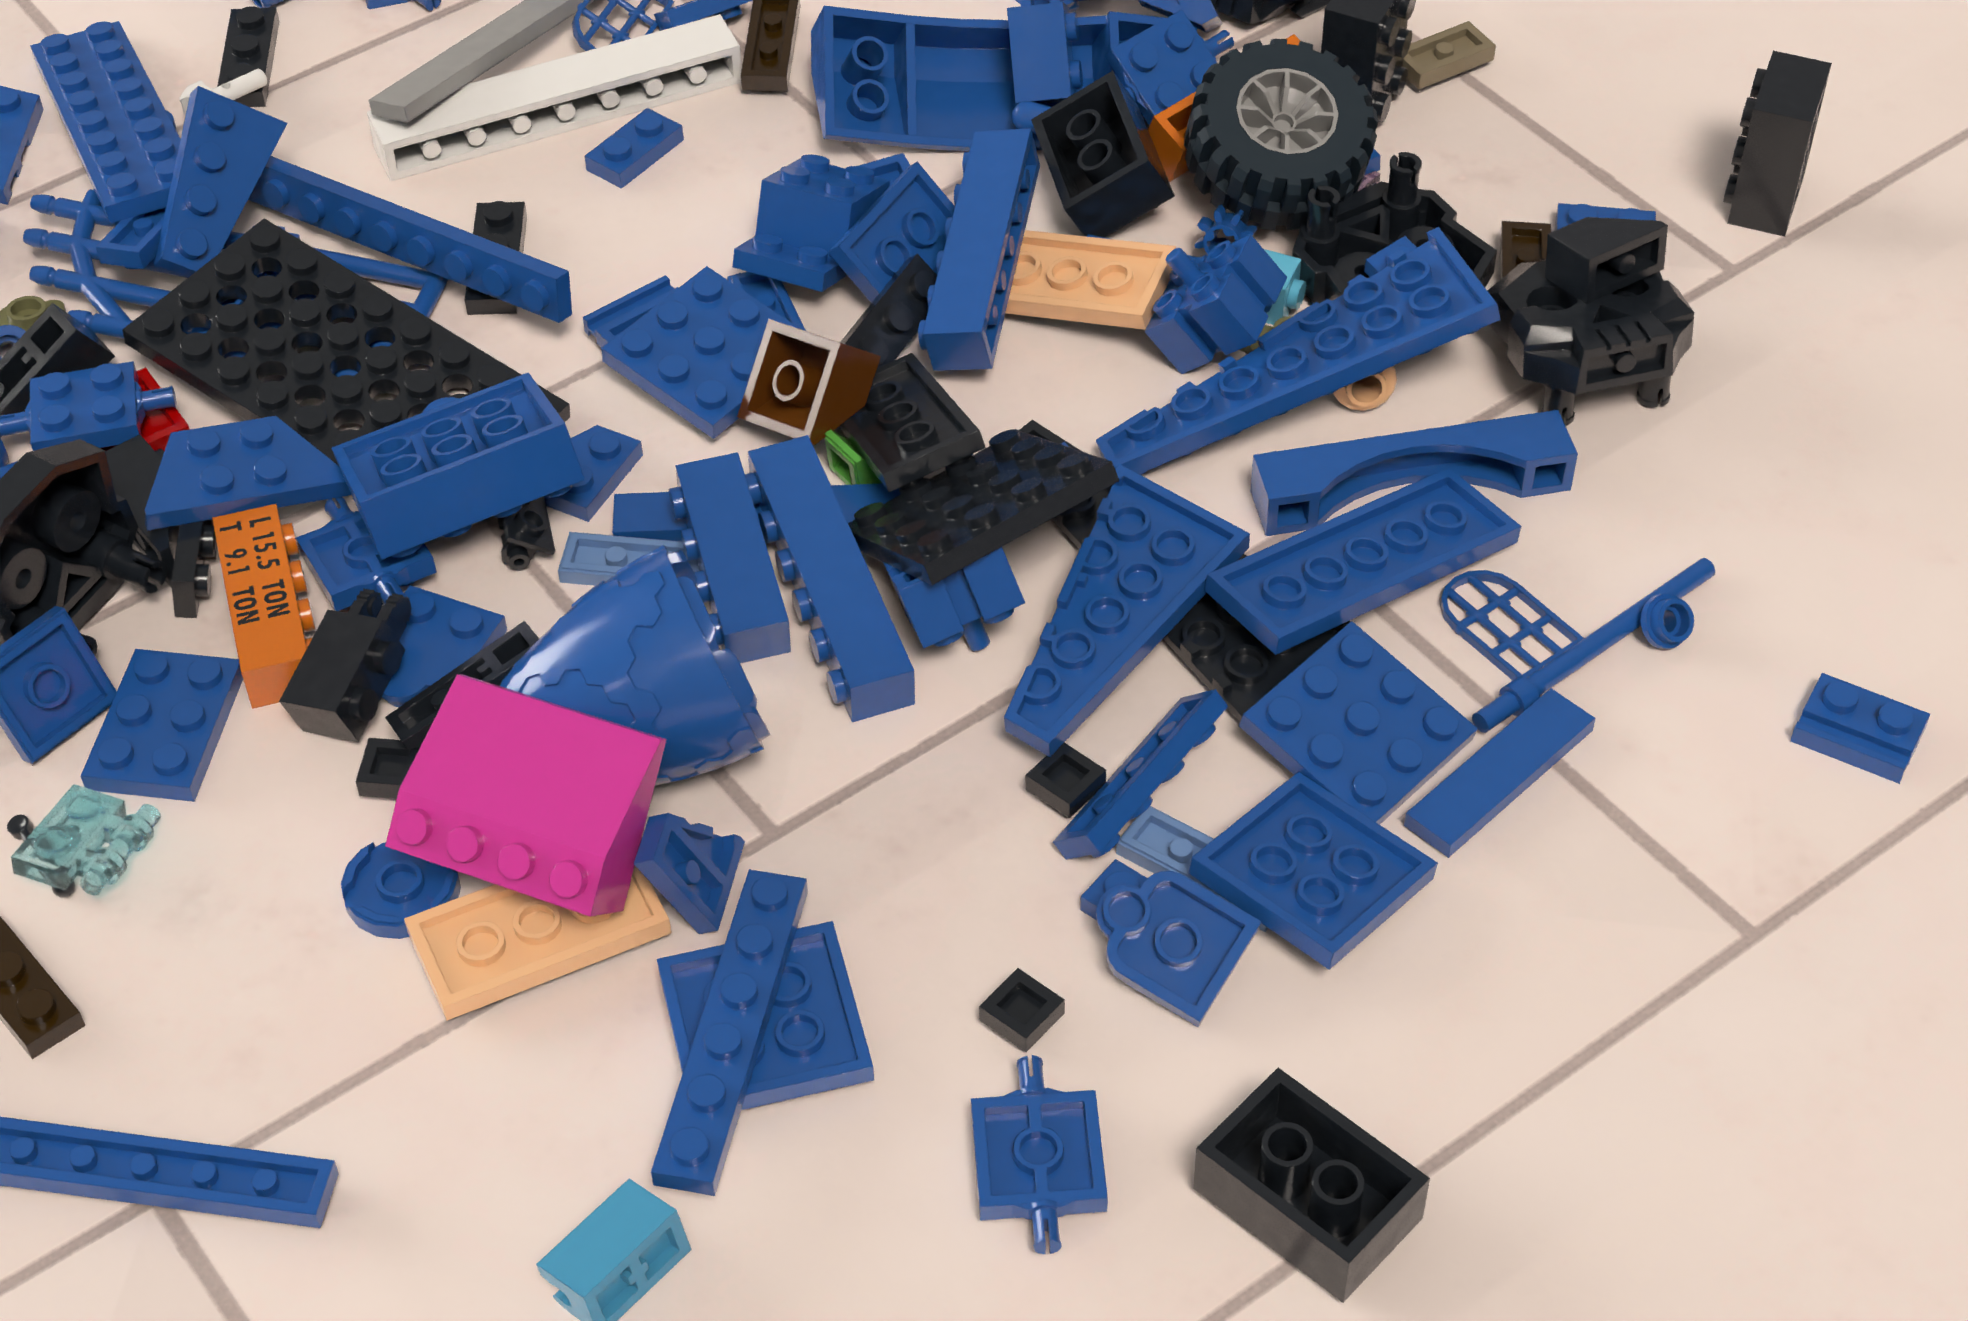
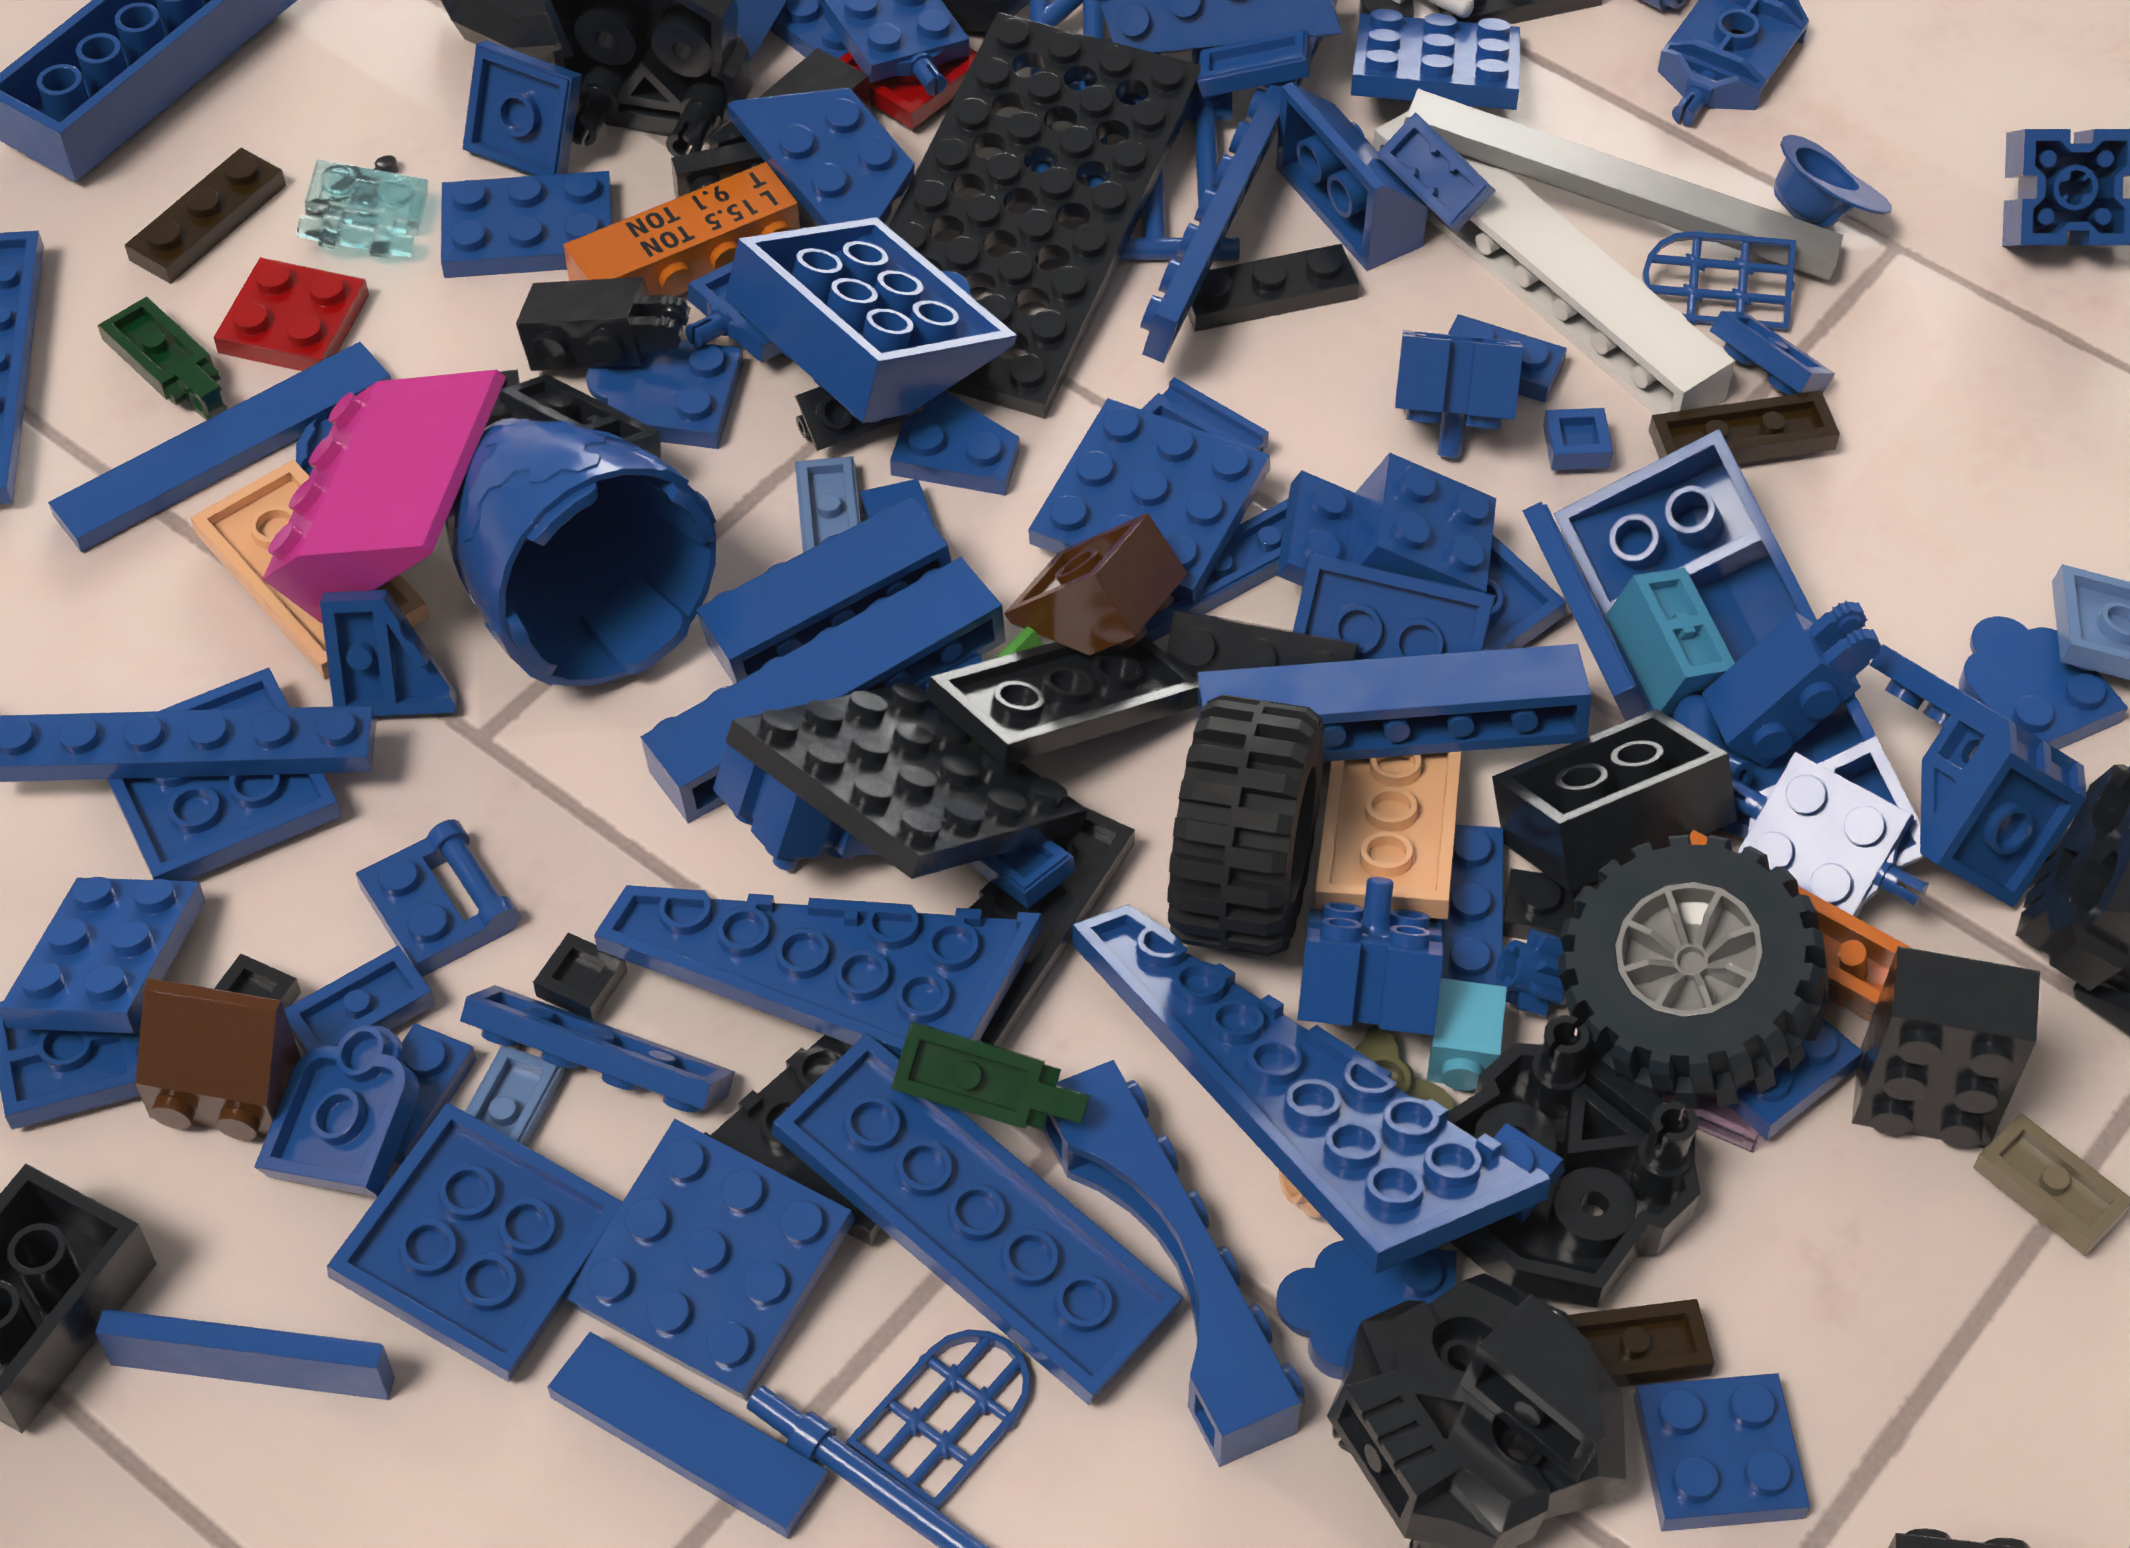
camera: 75 degrees right, 5 degrees up
(192, 920) = (291, 315): none -> red plate
(206, 1020) = (165, 356): none -> dark green hinge
(282, 184) = (1255, 63): none -> blue tile
(325, 96) = (1437, 55): none -> blue plate
(343, 994) = (212, 448): none -> blue tile
(429, 173) = (1345, 180): none -> blue slope
(463, 110) = (1435, 172): none -> blue plate
(675, 152) = (1457, 383): none -> blue brick
(740, 121) = (1577, 438): none -> blue plate
(929, 147) = (1585, 611): none -> blue tile
(952, 889) = (418, 908): none -> blue plate
(954, 1105) = (101, 954): none -> blue plate
(962, 102) = (1668, 637): none -> dark azure hinge
(1054, 934) = (375, 994): none -> blue plate
(1094, 318) = (1245, 825): none -> black tyre
(1103, 1021) = (213, 1058): none -> reddish brown slope
(1158, 229) = (1536, 904): none -> black plate
(1272, 510) = (984, 1079): none -> dark green hinge
(1390, 1027) = (245, 1354): none -> blue tile
(1468, 382) = (1343, 1291): none -> blue plate

